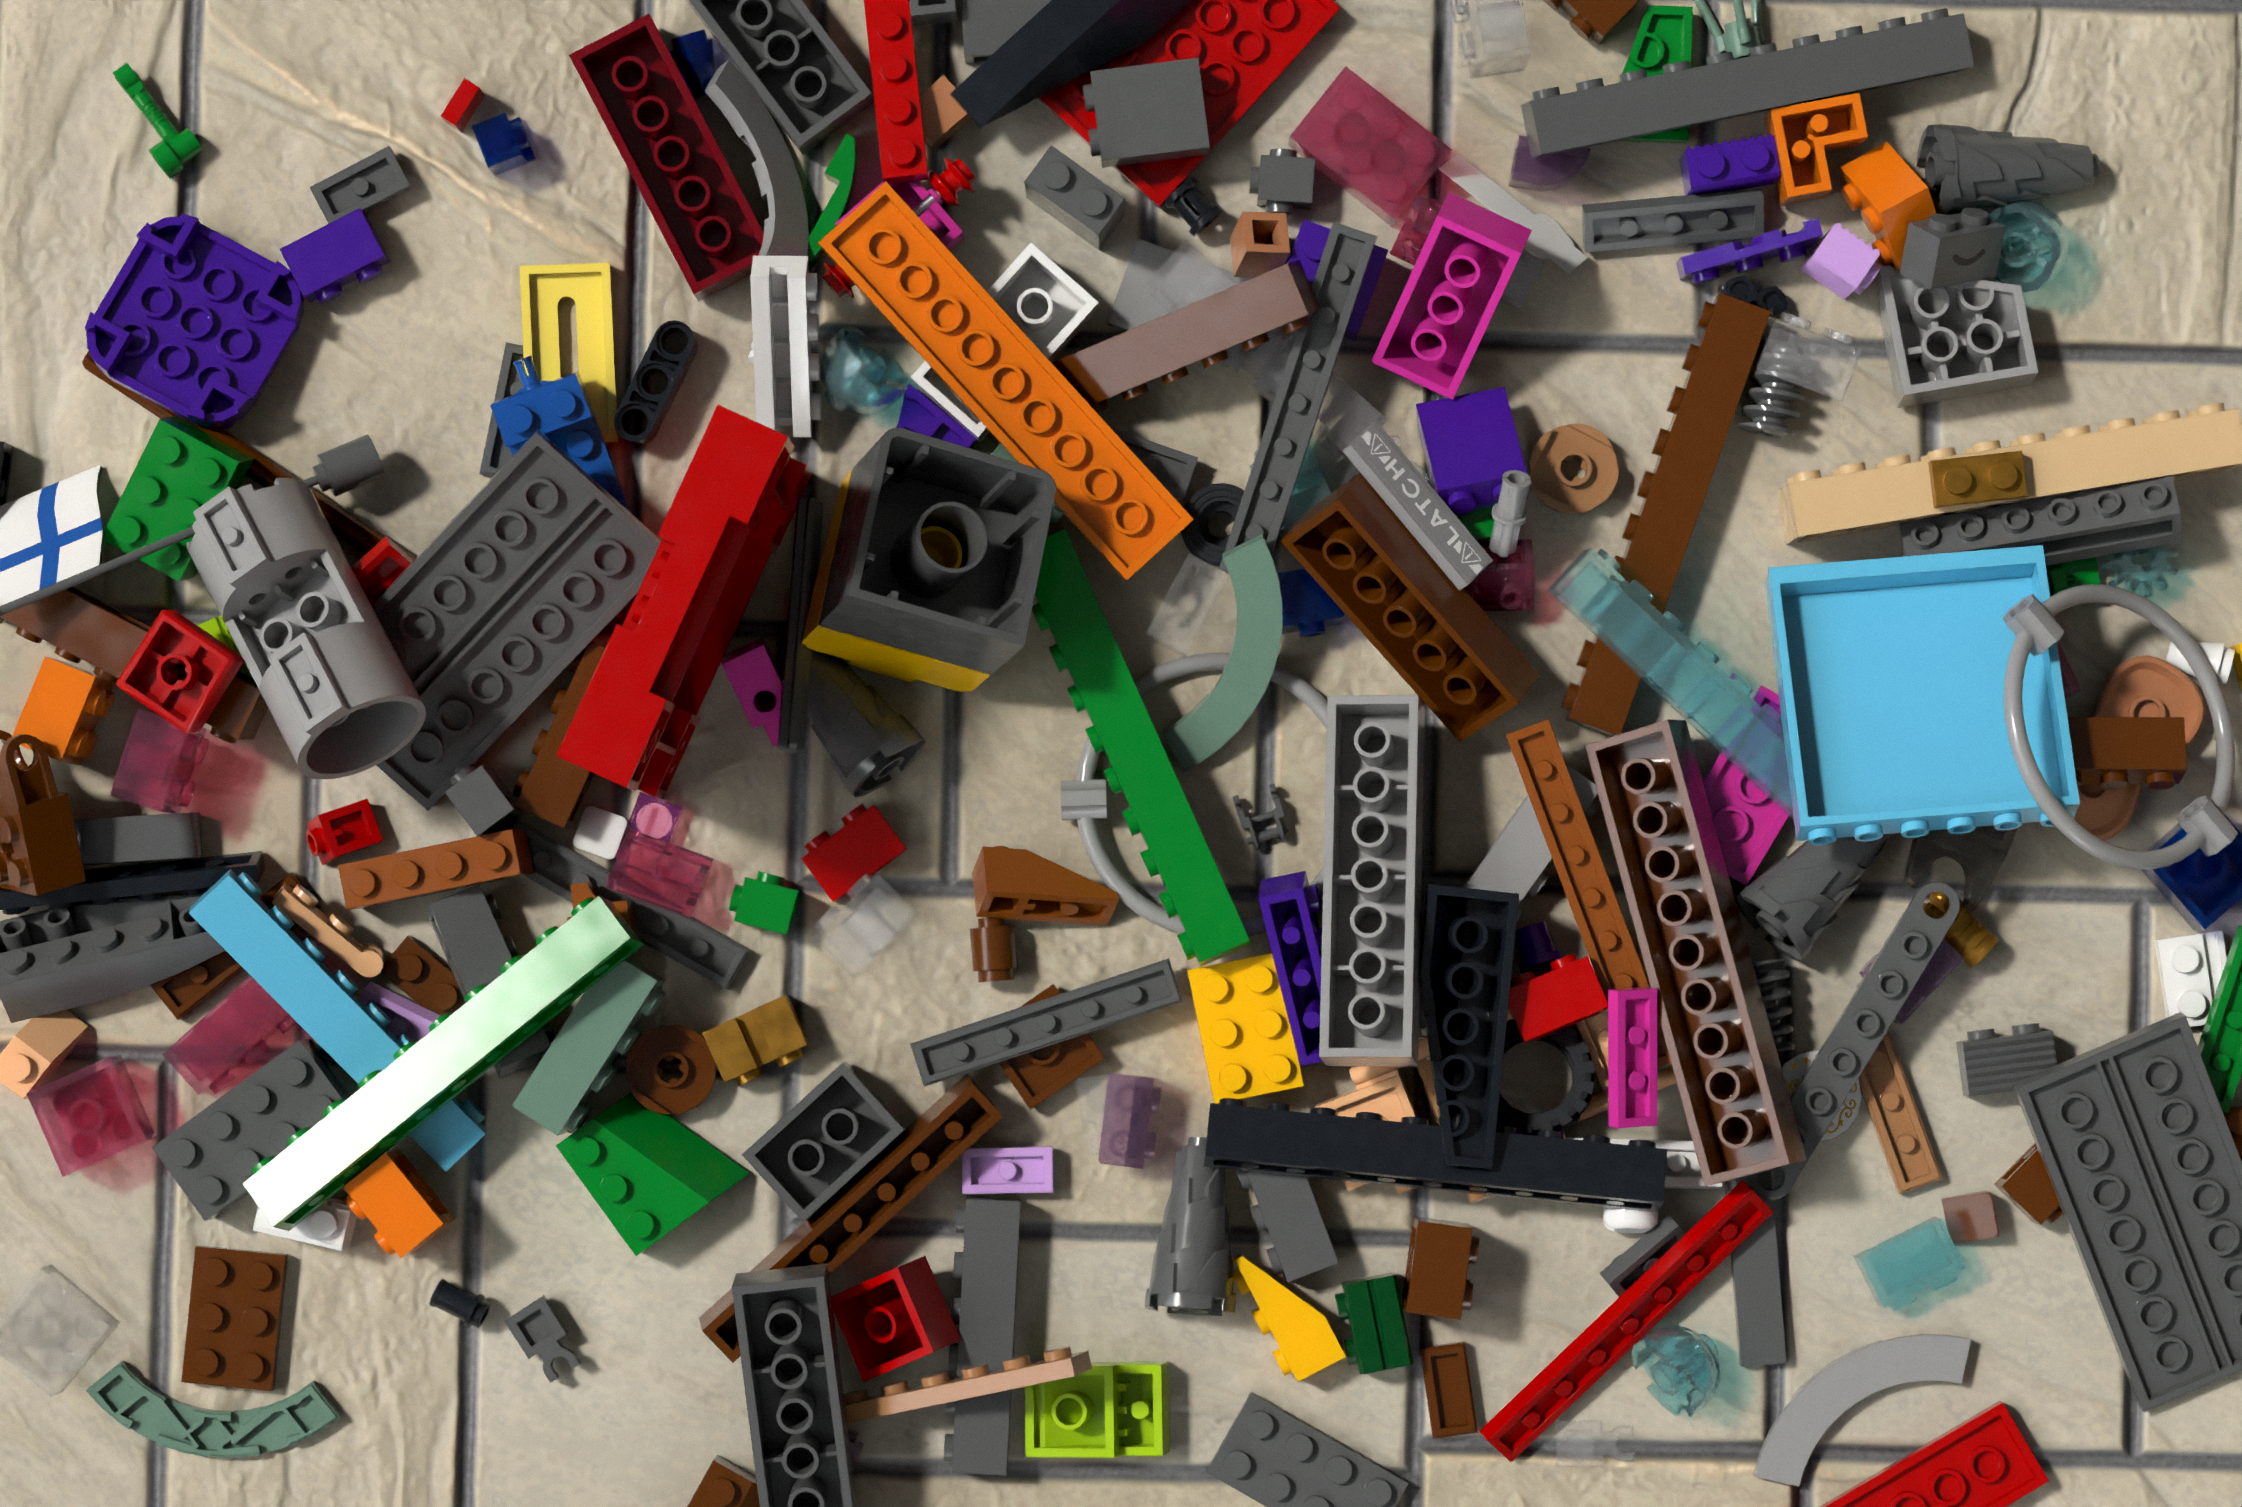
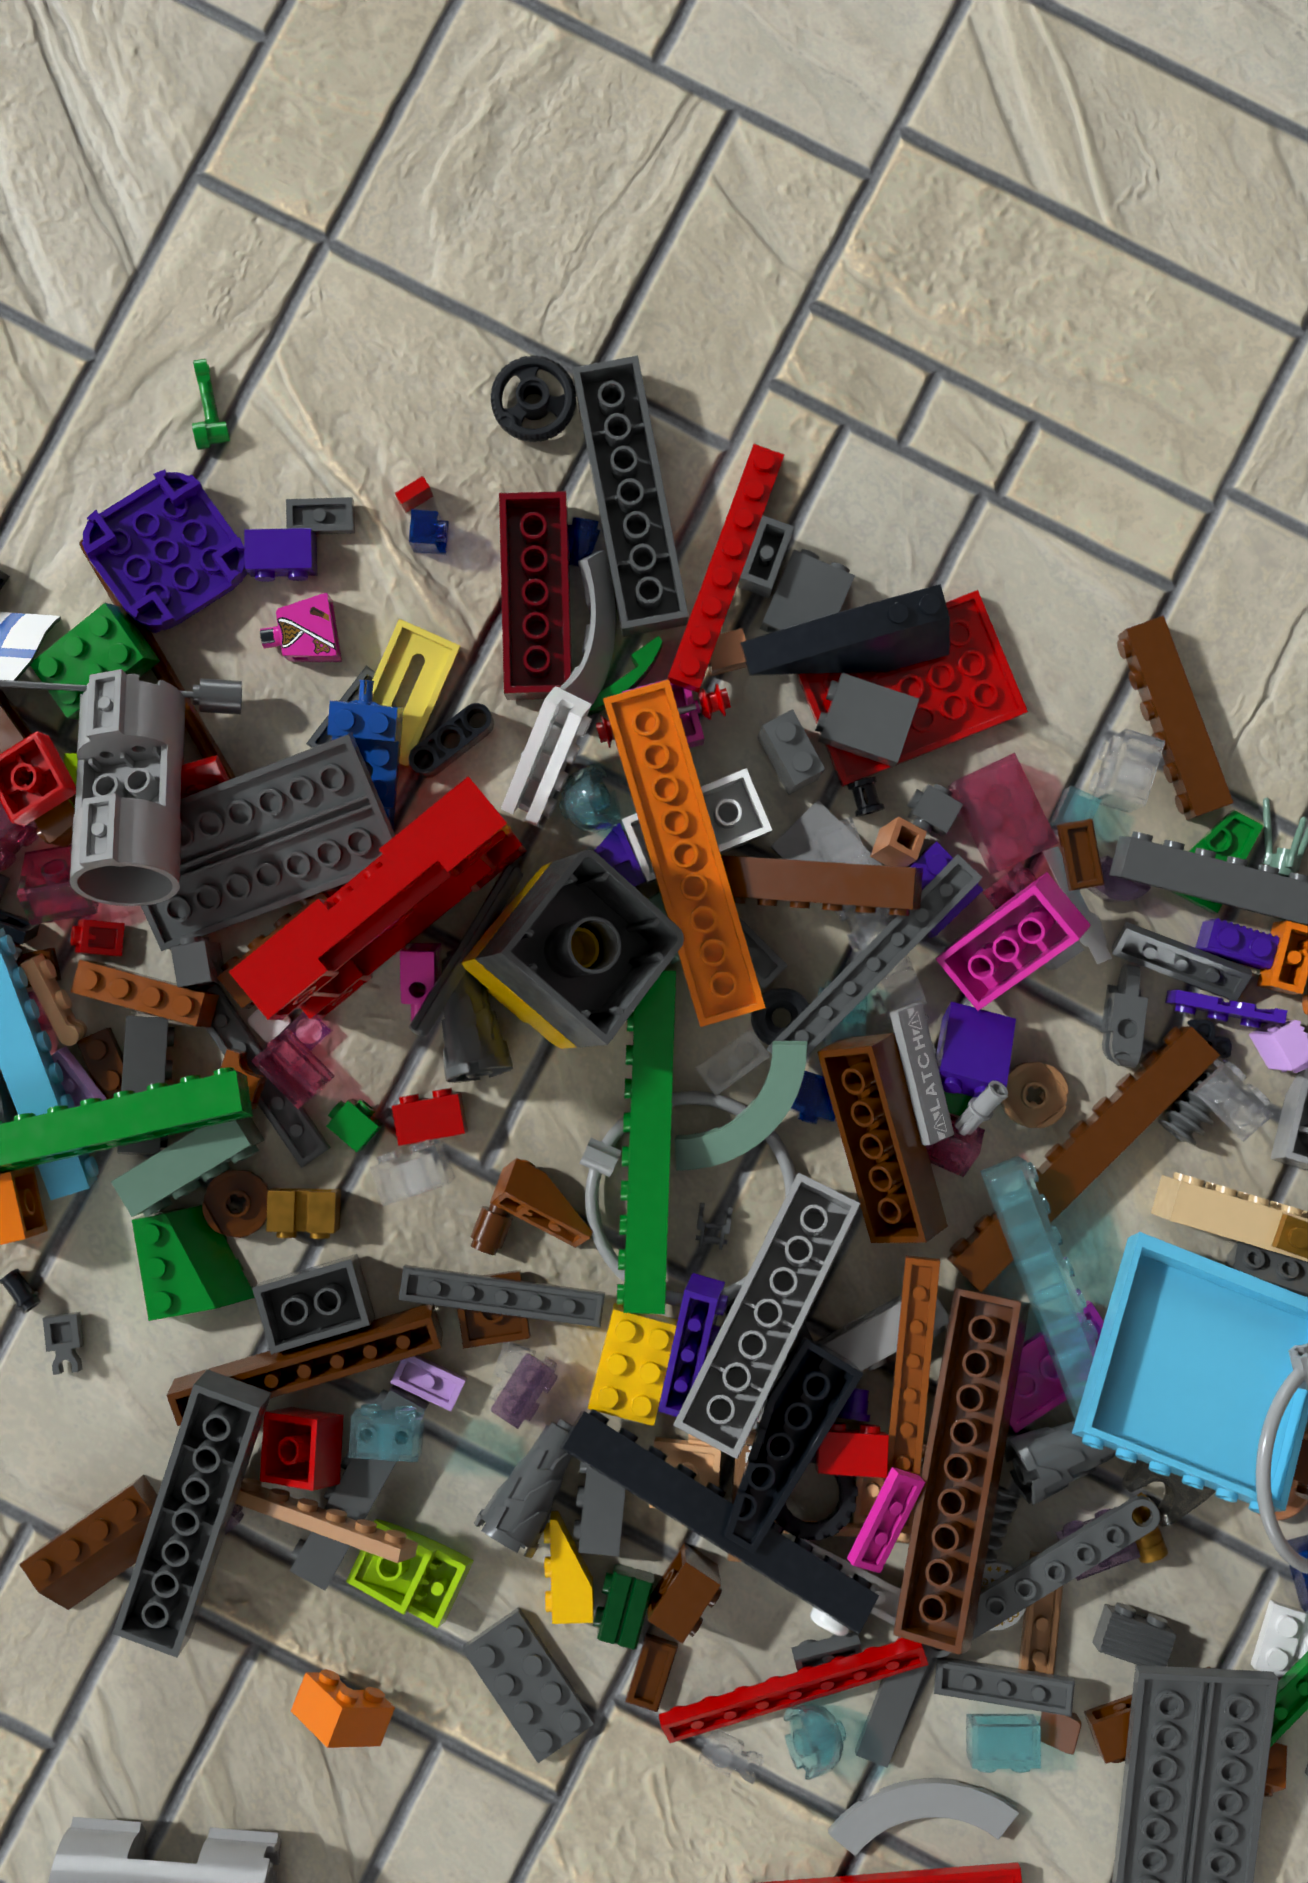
camera: 15 degrees right, 0 degrees up
(263, 789) = (46, 887): none -> clear pink slope
(412, 337) = (305, 631): none -> dark pink torso
(991, 1252) = (386, 1438): none -> clear light blue brick
(1456, 104) = (1074, 806): none -> clear light blue brick
(1485, 151) = (1080, 854): none -> reddish brown tile
(1637, 324) = (1124, 1019): none -> dark grey piece
(1878, 1196) = (1004, 1686): none -> dark grey tile

